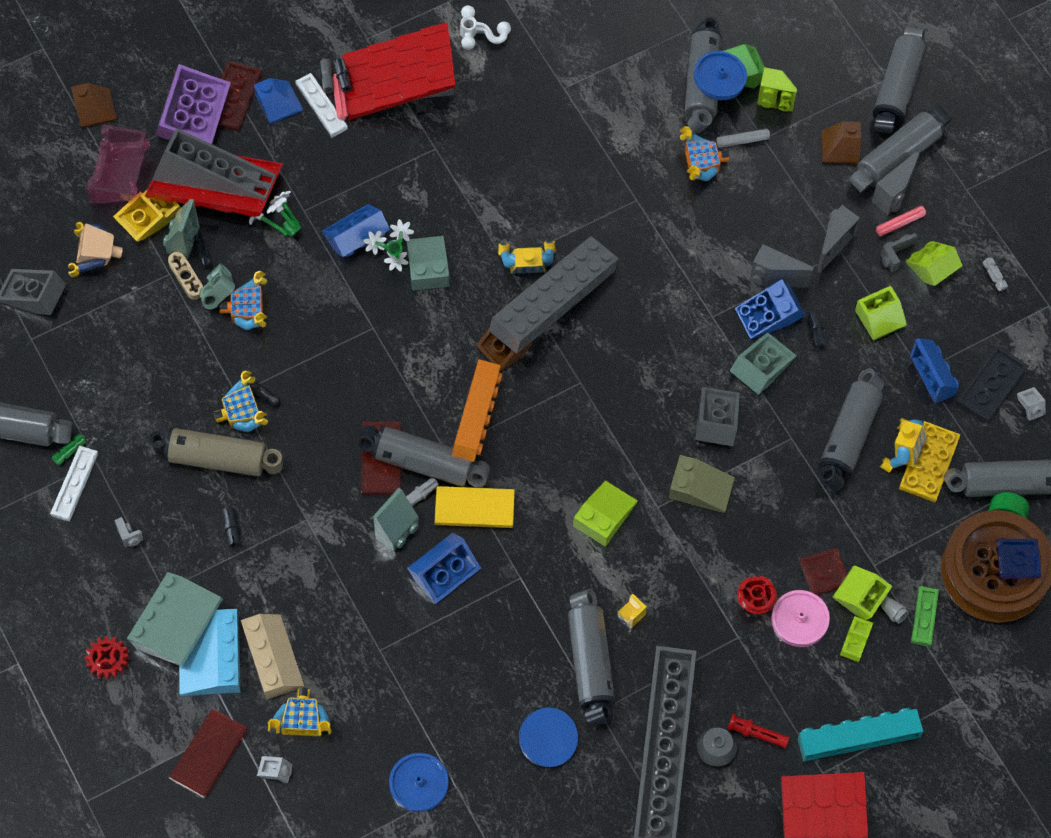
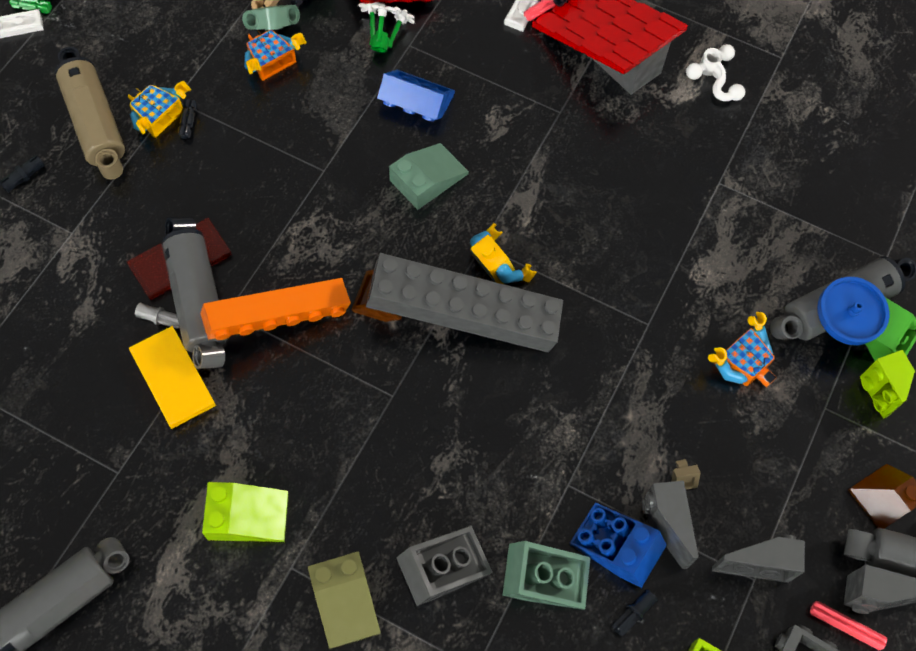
camera: 55 degrees right, 0 degrees up
(393, 247) = (408, 126): white plant -> none
(395, 521) = (98, 305): sand green slope -> none
(444, 567) = (80, 388): blue slope -> none
(633, 611) = (135, 619): yellow panel -> none
(743, 138) = (807, 386): light grey axle -> none
(753, 245) = (686, 473): none -> dark tan tile

